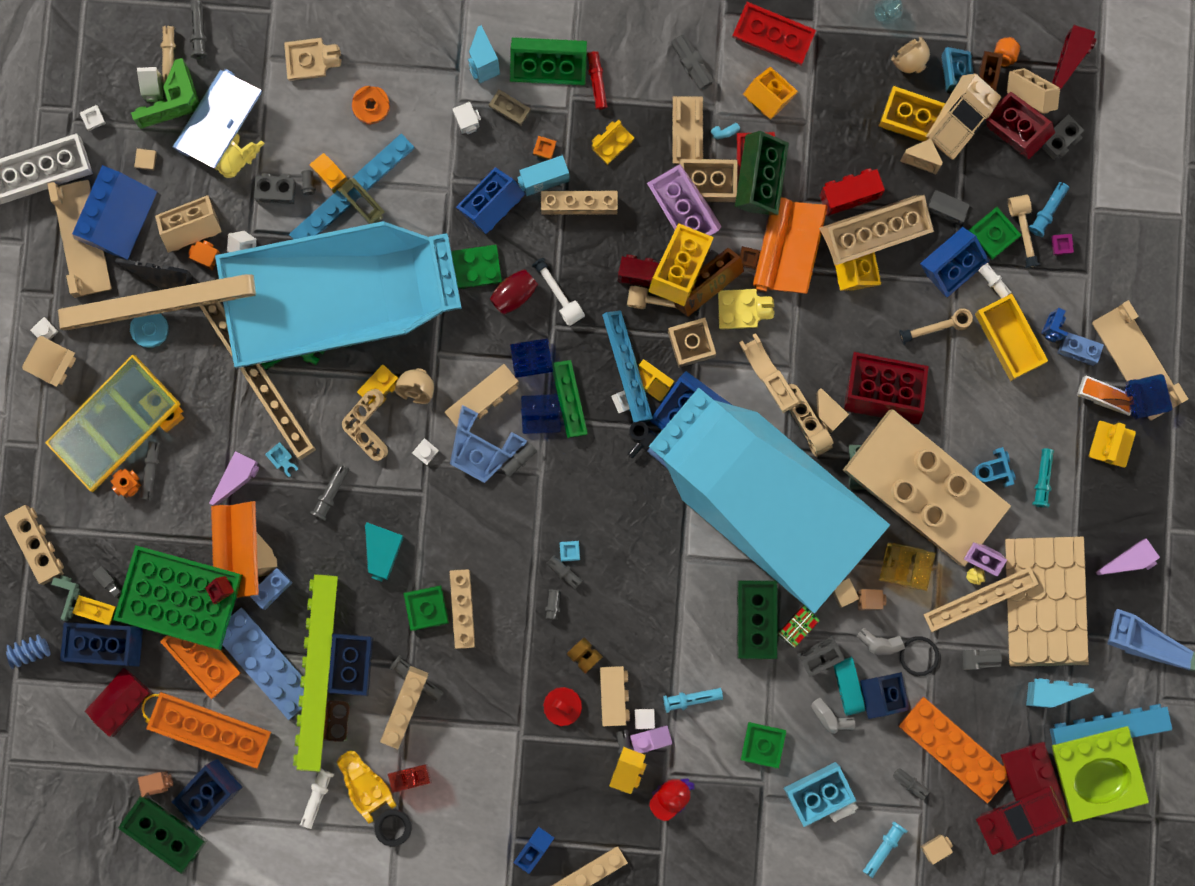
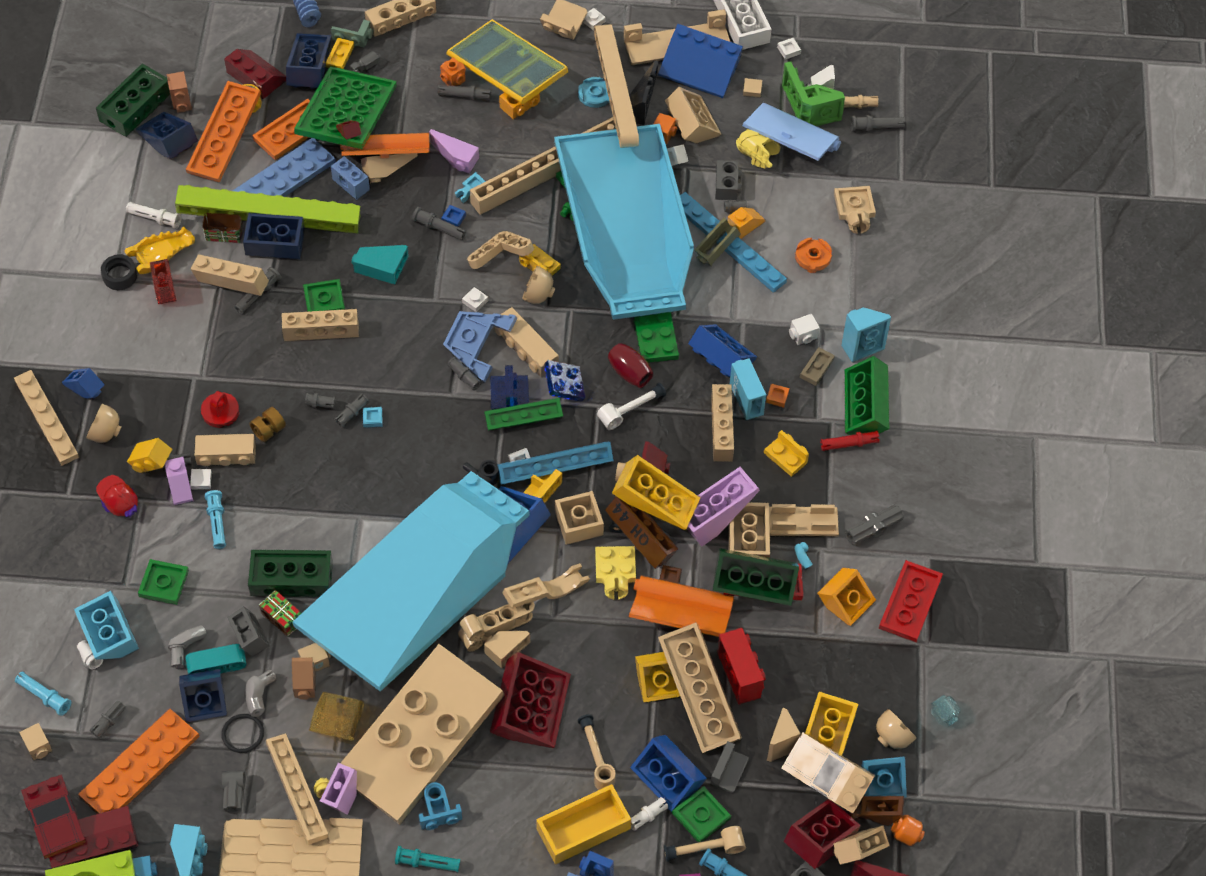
camera: 90 degrees right, 25 degrees down
(320, 476) = (454, 215): none -> blue plate
(588, 822) = (104, 425): none -> tan cylinder

